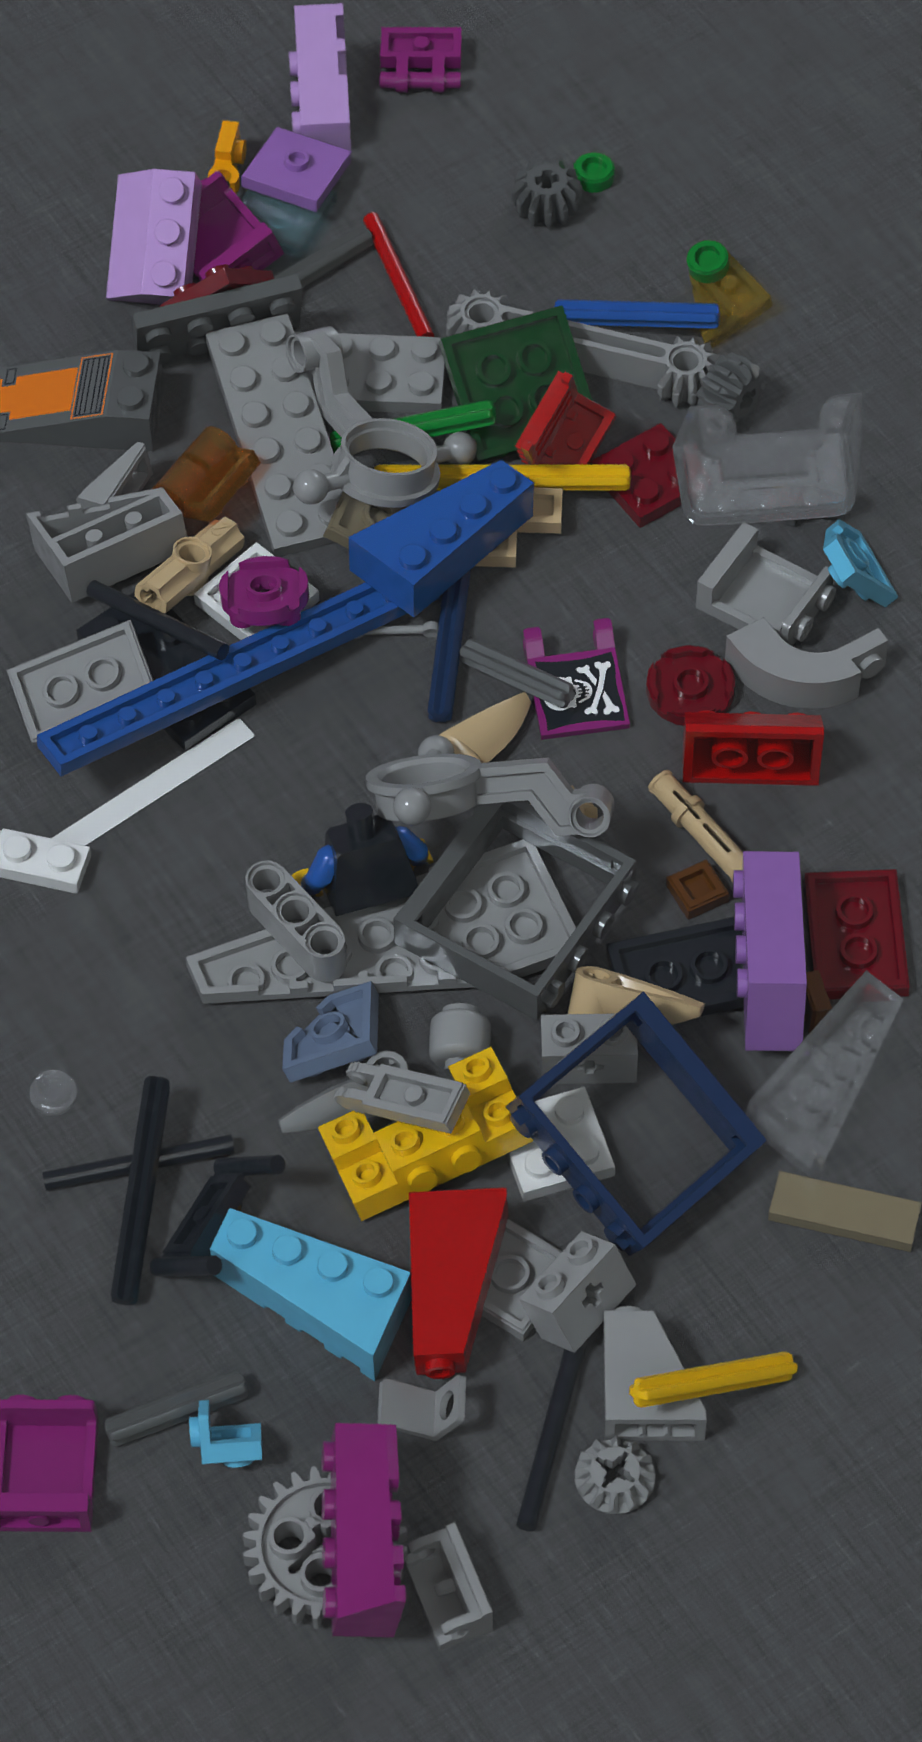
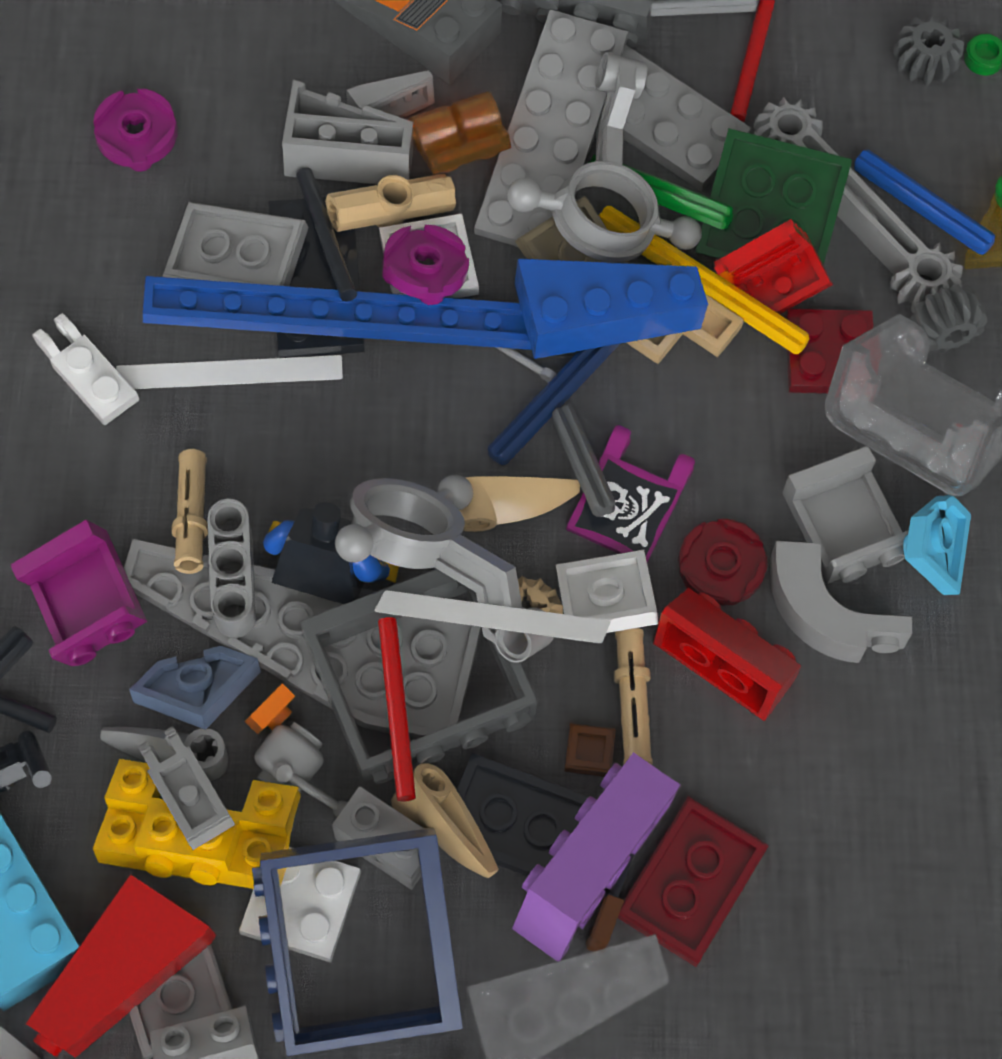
camera: 30 degrees right, 10 degrees up
(178, 1023) = (81, 592): none -> magenta panel
(231, 917) = (190, 525): none -> tan pin
(413, 1014) = (272, 710): none -> orange plate
(471, 1042) = (284, 772): none -> light grey hinge
(529, 932) = (396, 709): none -> red bar
(557, 807) = (493, 616): none -> white sticker
(622, 757) = (609, 589): none -> white plate

